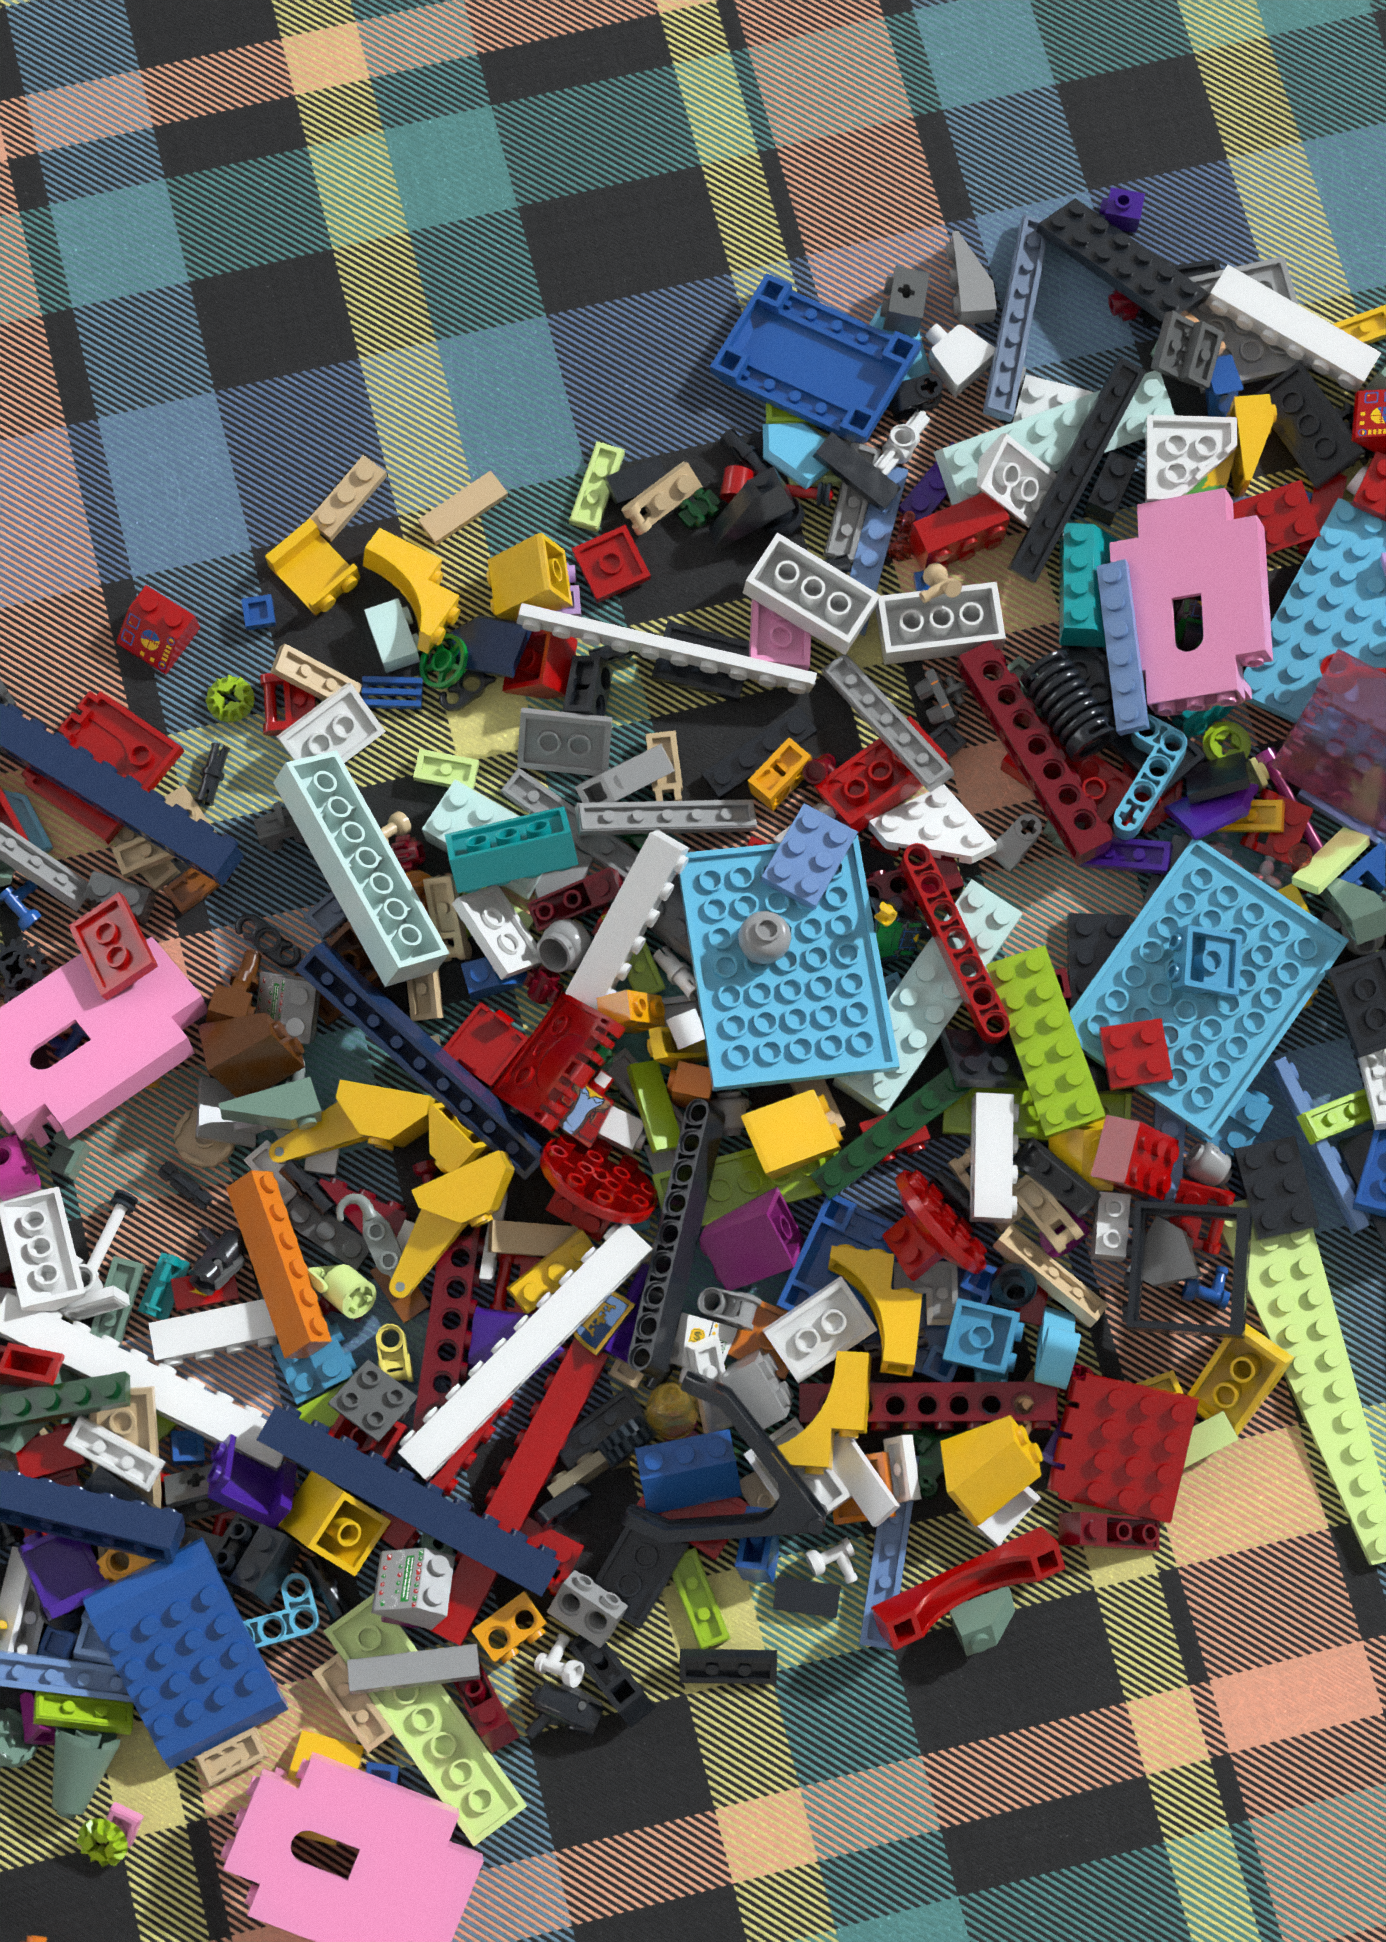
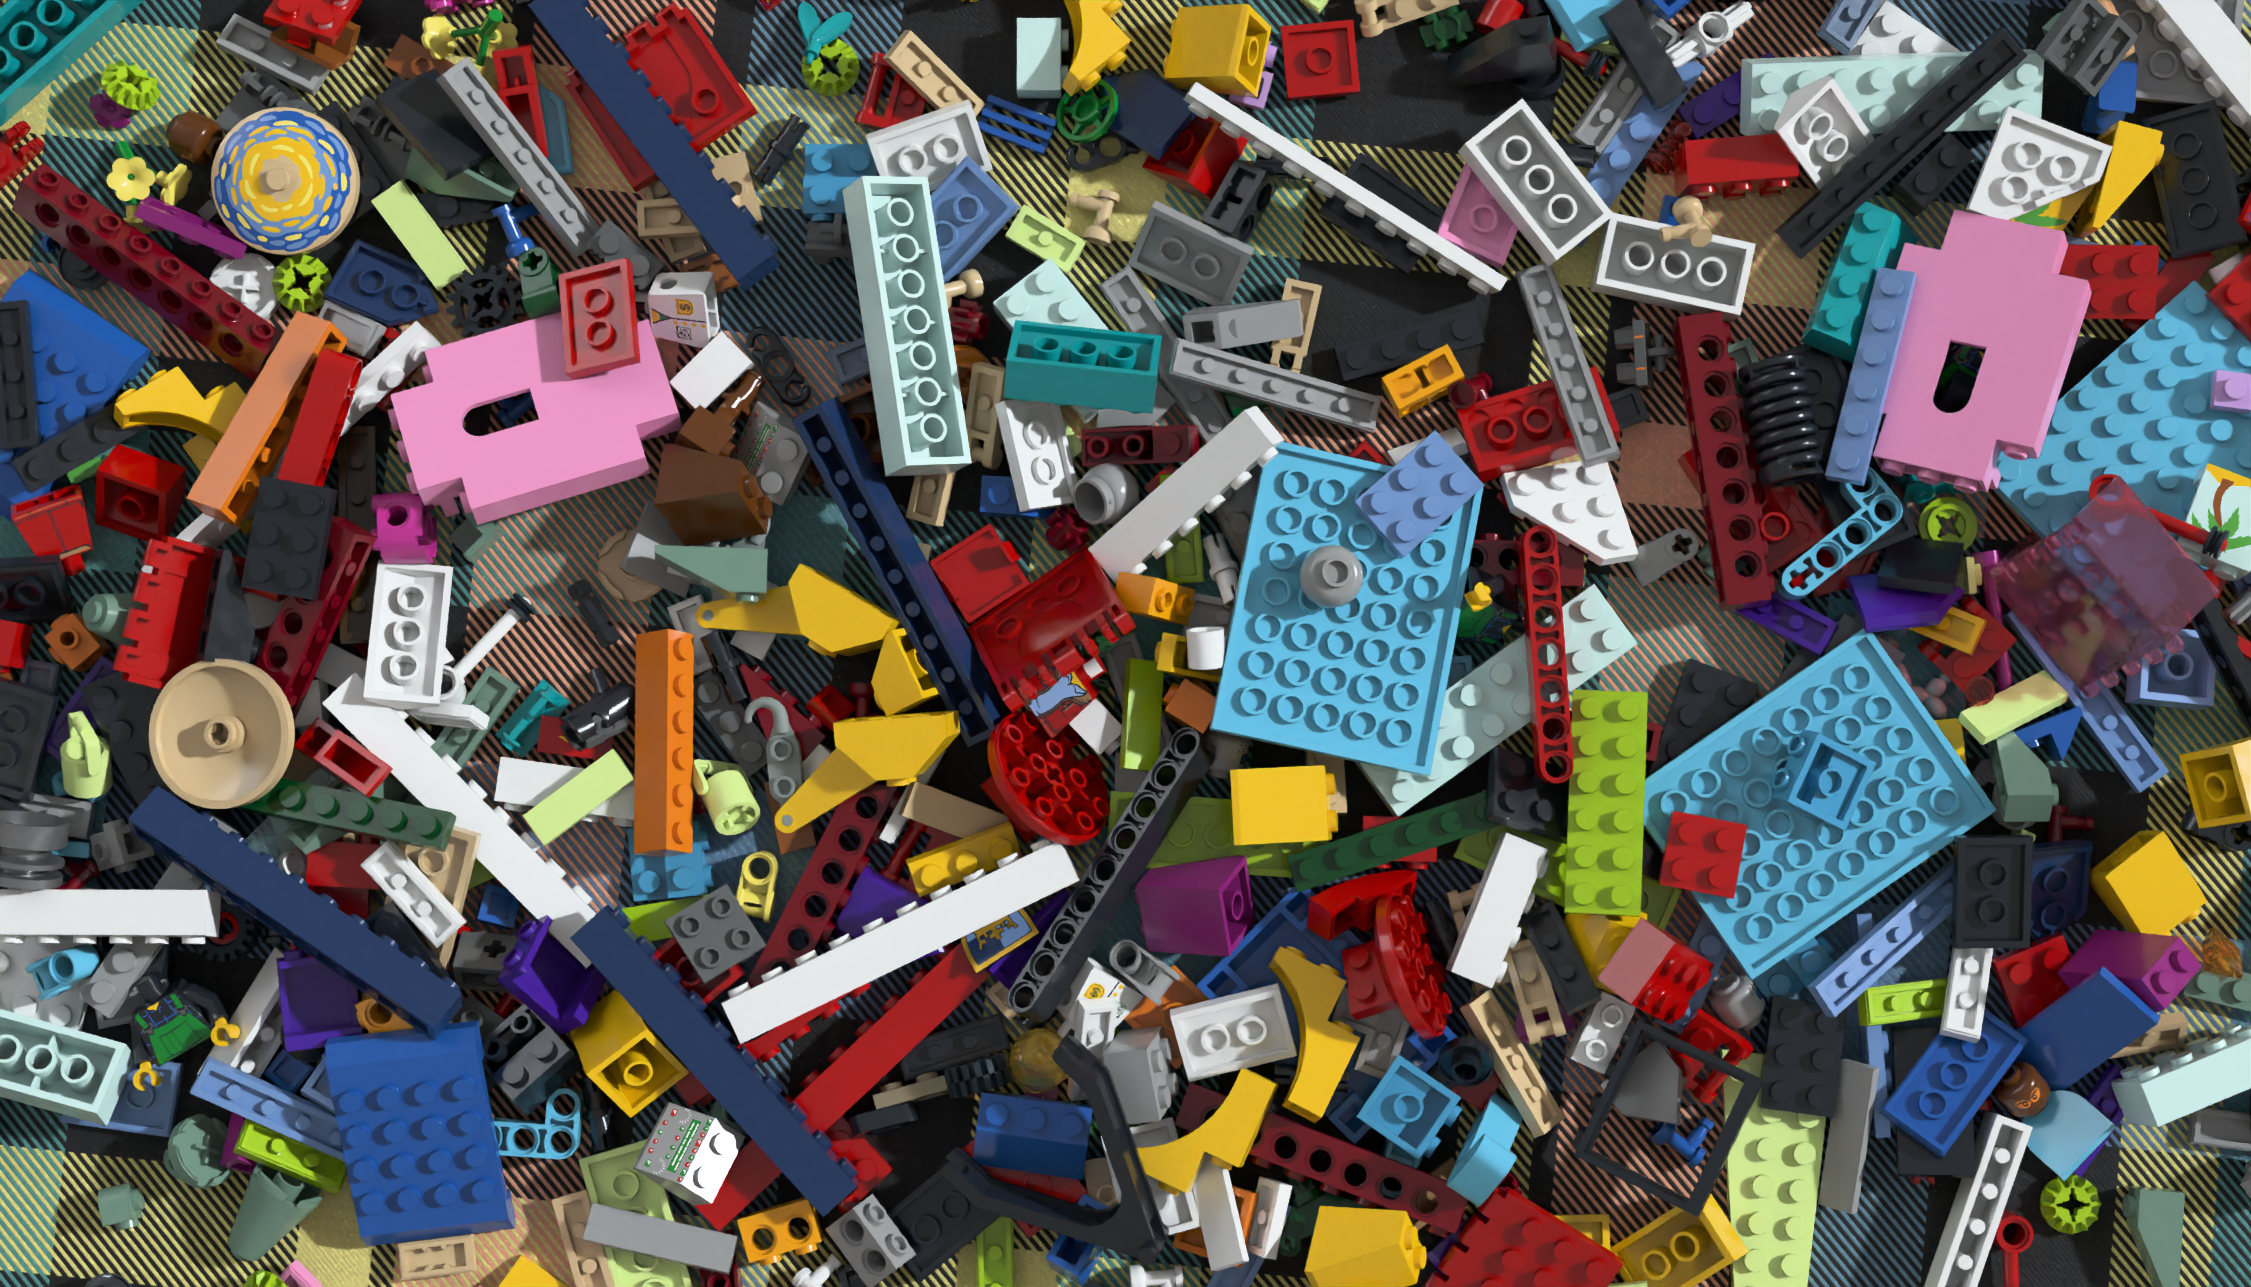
camera: 25 degrees right, 10 degrees up
(55, 939) = (539, 283): none -> dark green piece
(176, 918) = (682, 307): none -> white torso
(212, 677) = (817, 35): none -> teal piece
(216, 960) = (711, 371): none -> white panel
(224, 1331) = (579, 797): none -> yellowish green tile
(256, 779) = (829, 171): none -> dark azure plate
(379, 770) = (967, 215): none -> medium blue tile
(400, 1190) = (830, 706): none -> red tile
(486, 751) = (1103, 205): none -> tan piece
(877, 1192) = (1356, 901): none -> red slope
(1304, 1074) = (1885, 943): none -> medium blue plate
(1337, 1238) = (1848, 1136): none -> light grey tile

